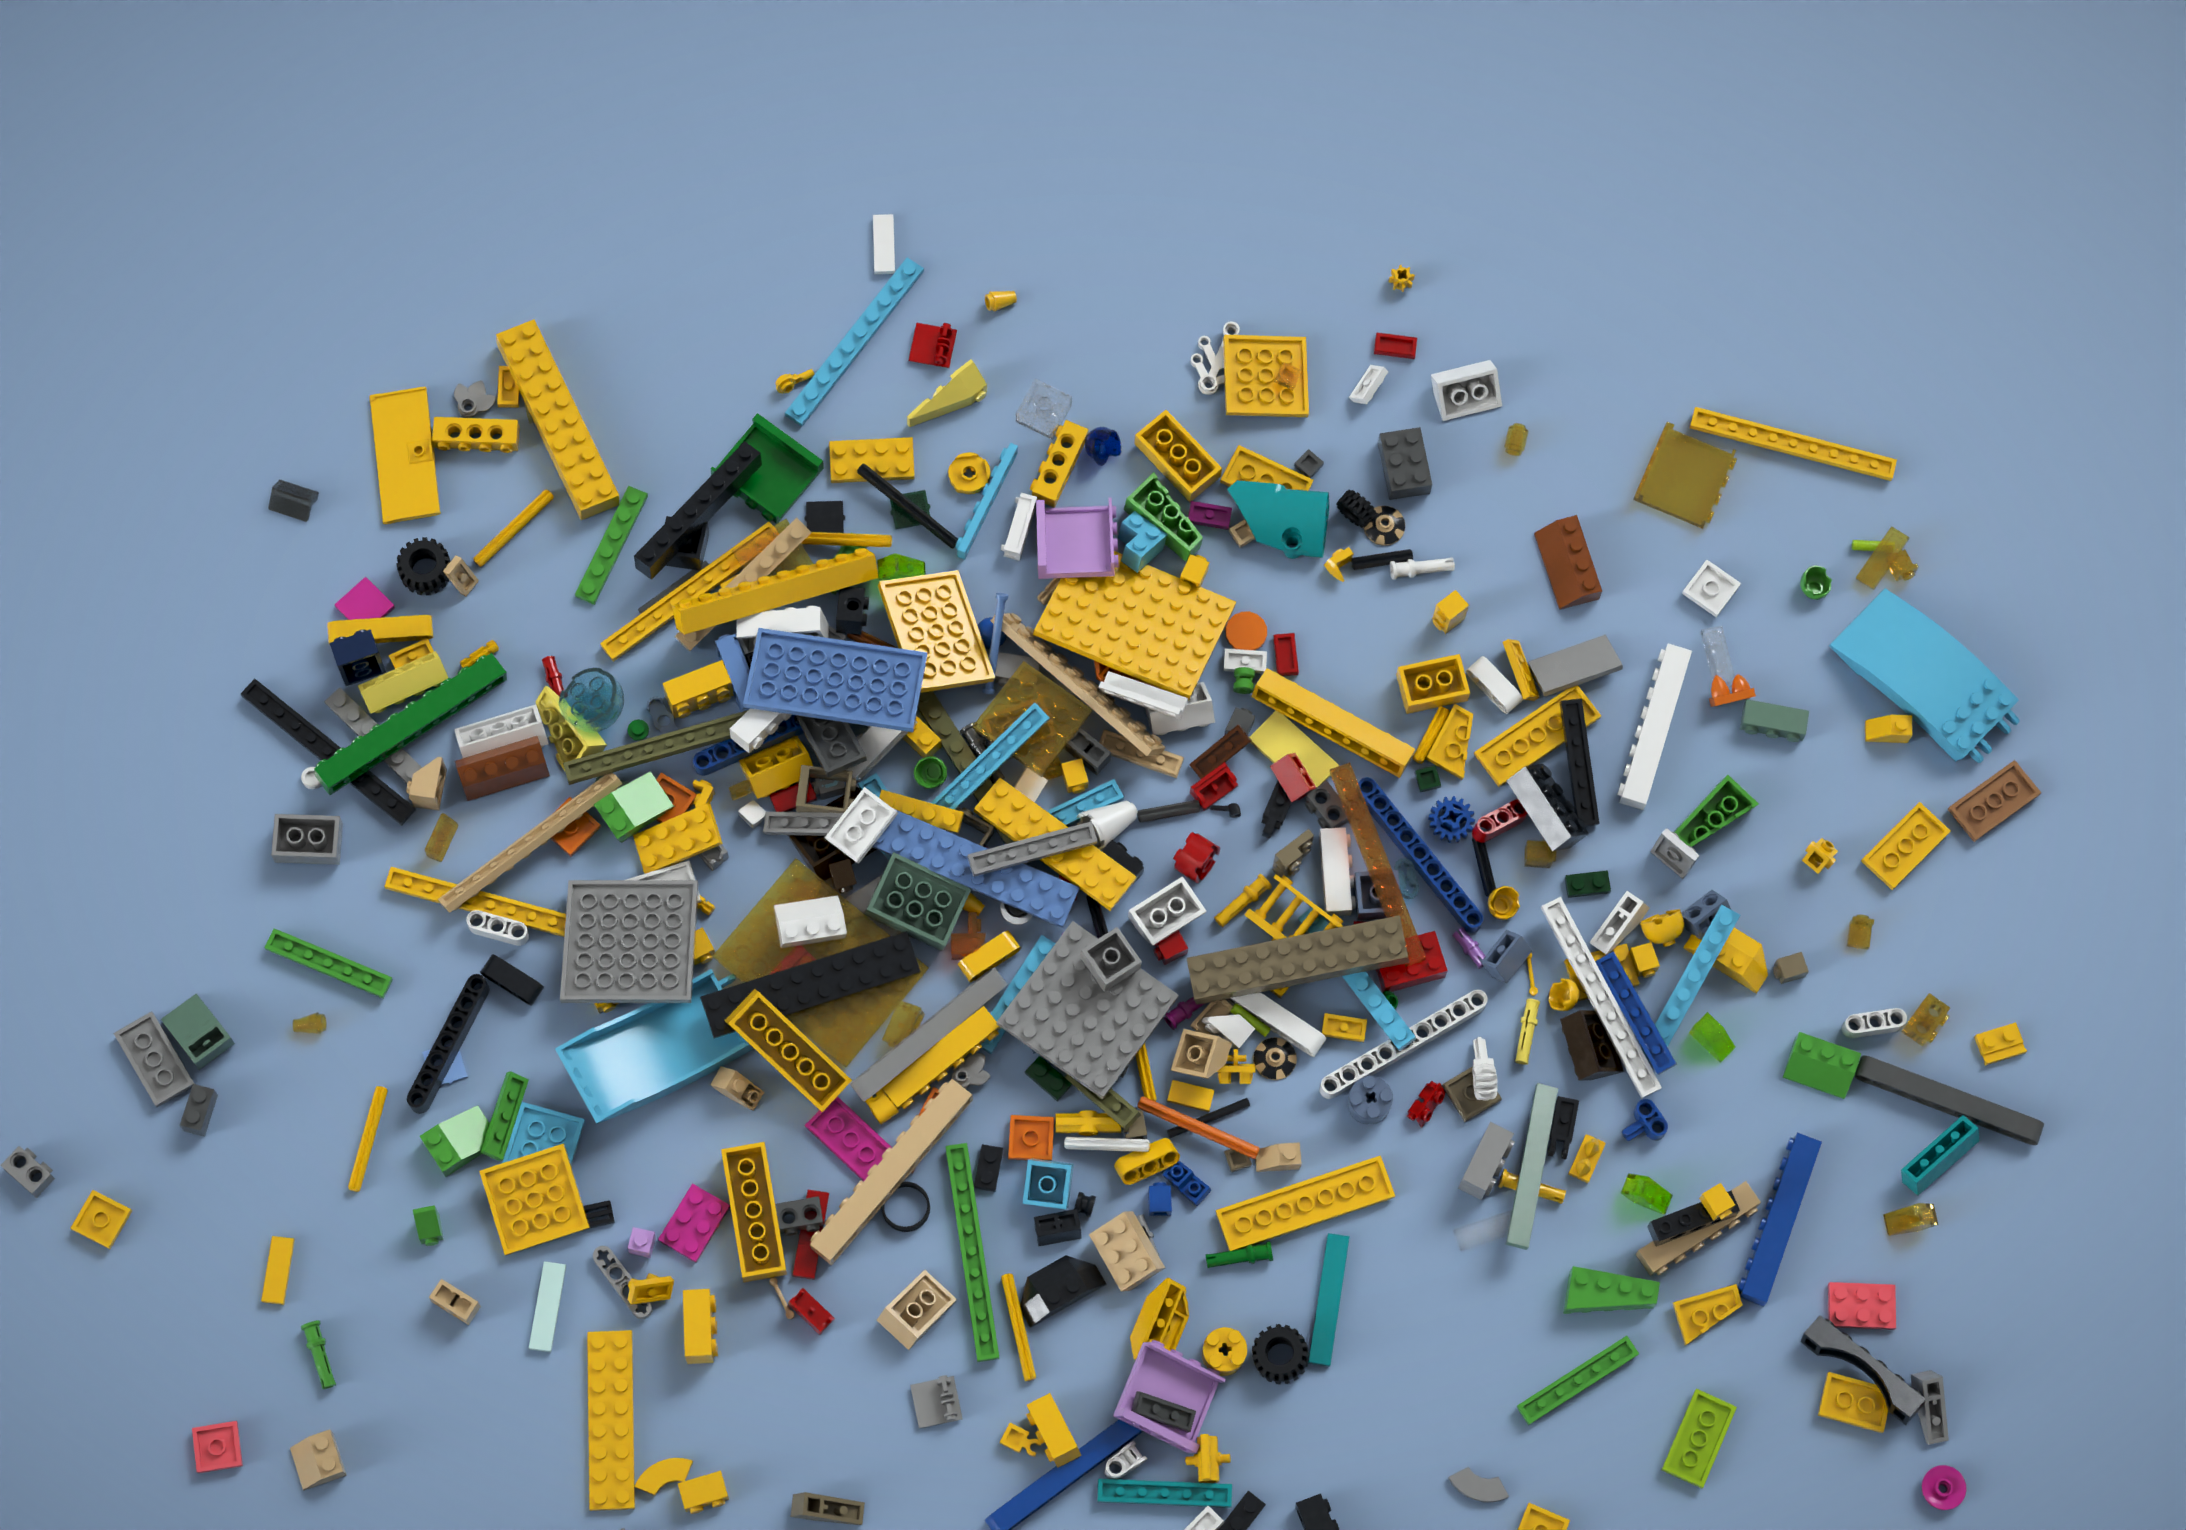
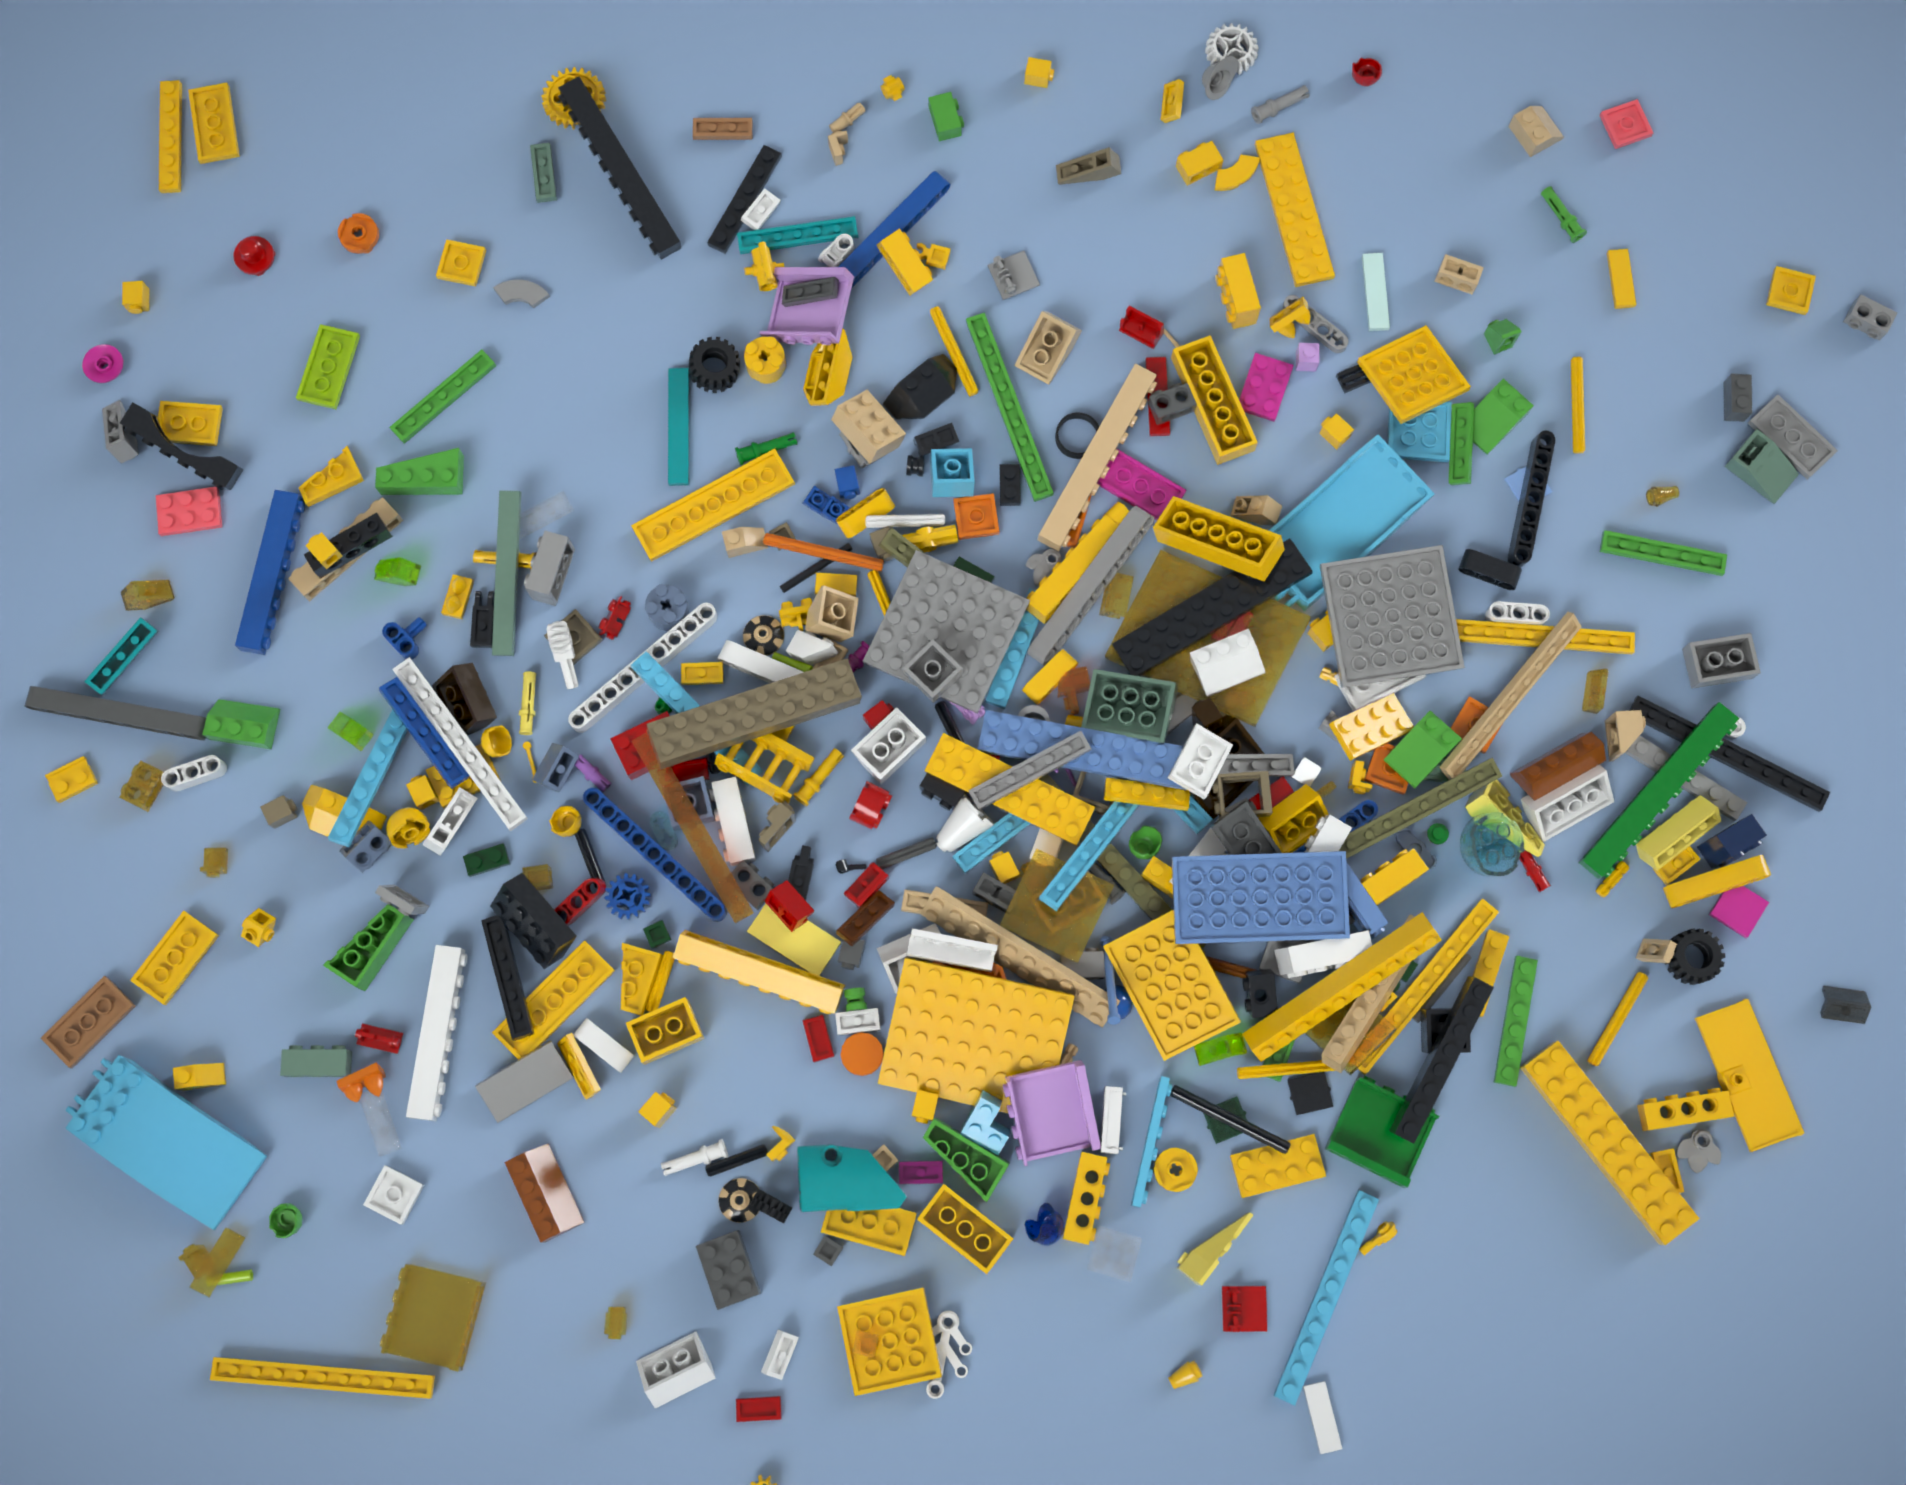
camera: 175 degrees right, 5 degrees up
(623, 600) = (1490, 959): none -> yellow plate
(632, 1156) = (1336, 431): none -> yellow brick
(1711, 733) = (379, 1038): none -> red hinge

